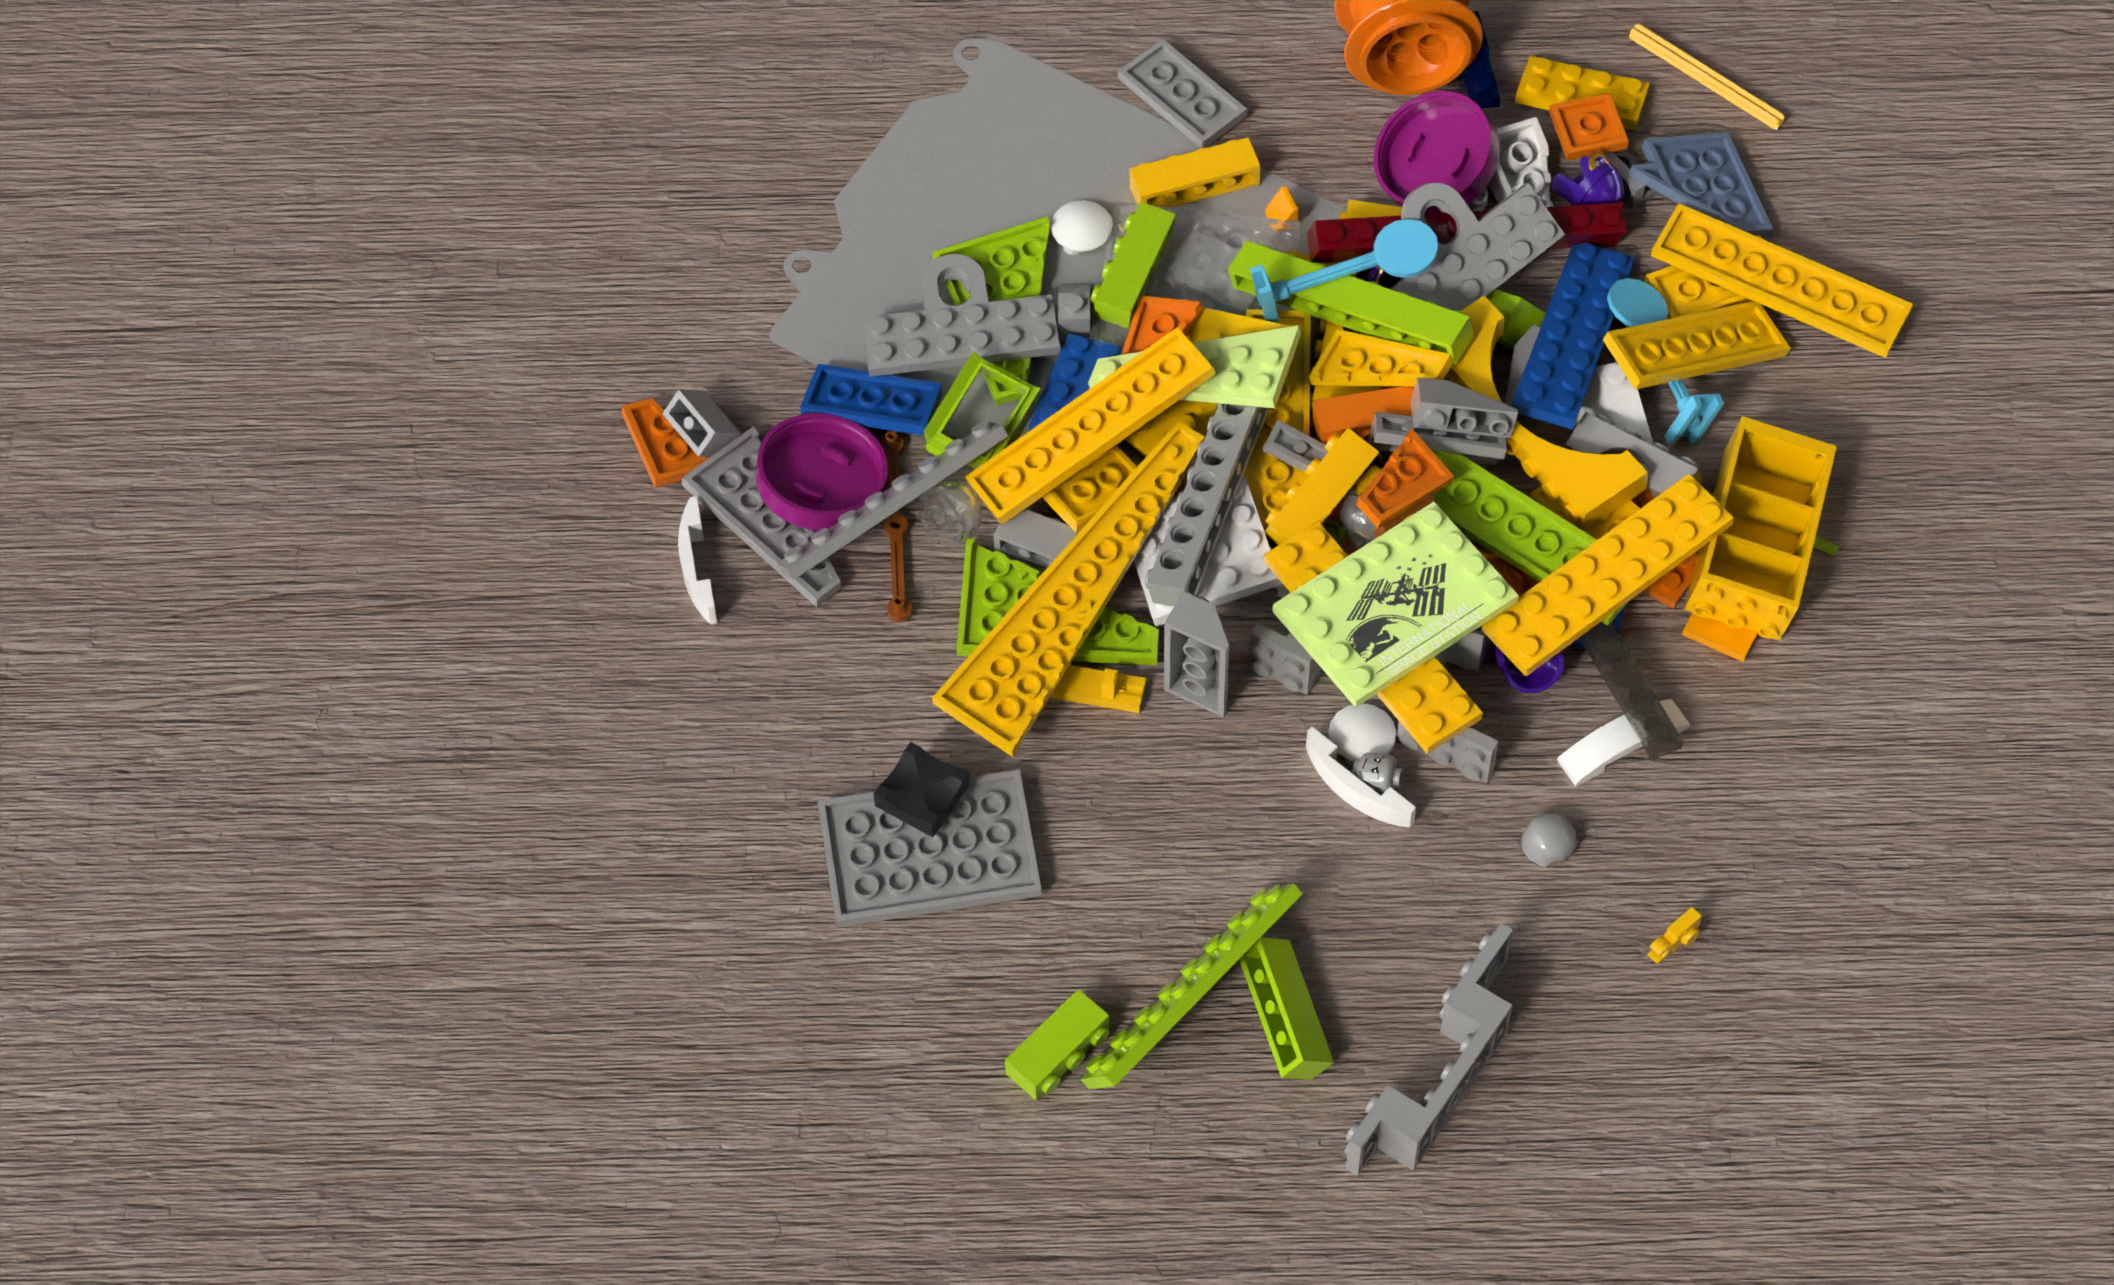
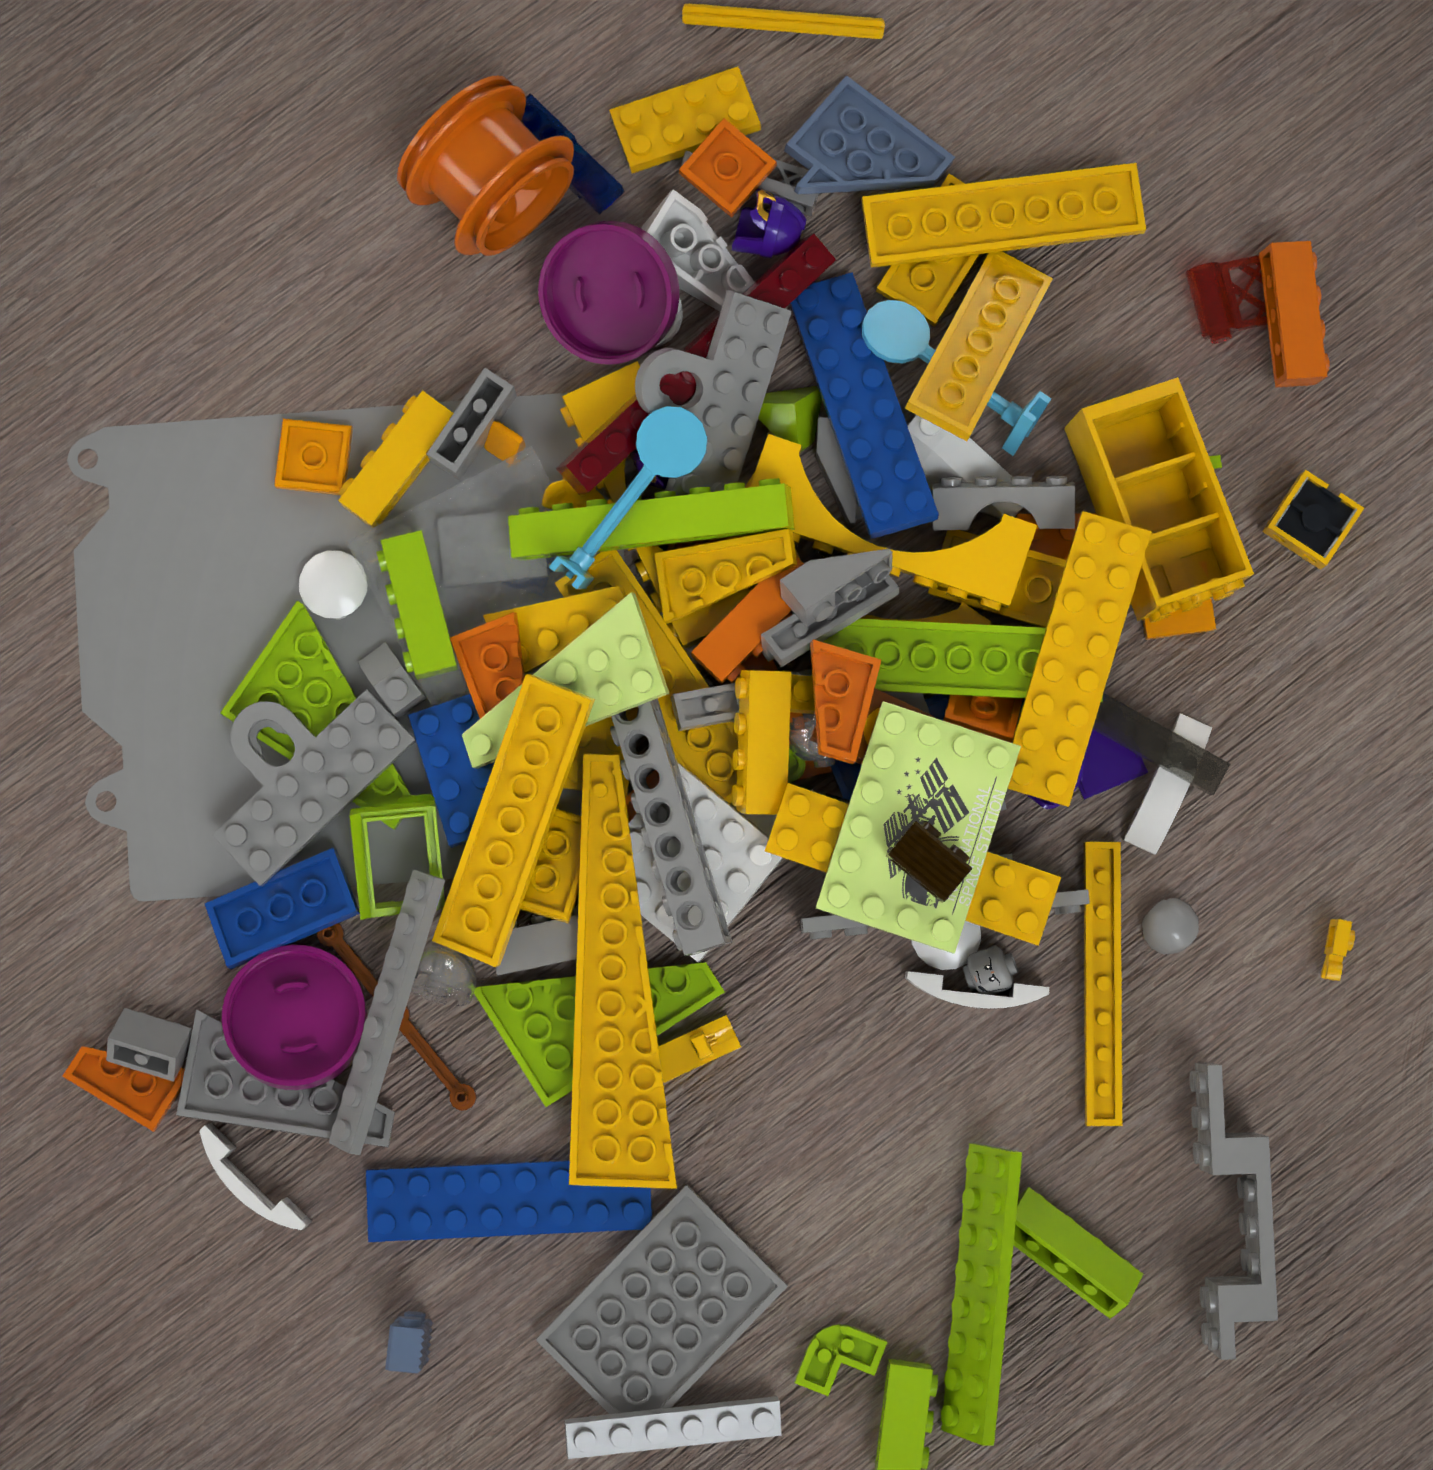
camera: 35 degrees left, 25 degrees up
(722, 733) = (409, 1343): none -> sand blue brick
(867, 693) = (495, 1202): none -> blue plate
(872, 927) = (672, 1427): none -> plate
(921, 790) = (623, 1276): black brick -> none
(1041, 960) = (836, 1346): none -> lime plate
(1133, 140) = (313, 456): none -> light orange tile
(1182, 93) = (320, 374): light grey plate -> none
(1196, 654) = (773, 986): light grey slope -> none
(1258, 181) = (470, 424): none -> light grey brick
(1385, 617) = (929, 860): none -> dark brown brick
(1461, 844) = (1103, 984): none -> yellow plate
(1582, 694) = (1107, 766): none -> dark purple piece
(1881, 625) = (1313, 520): none -> piece
(1911, 442) = (1216, 298): none -> clear red piece
(1967, 476) = (1294, 314): none -> orange brick

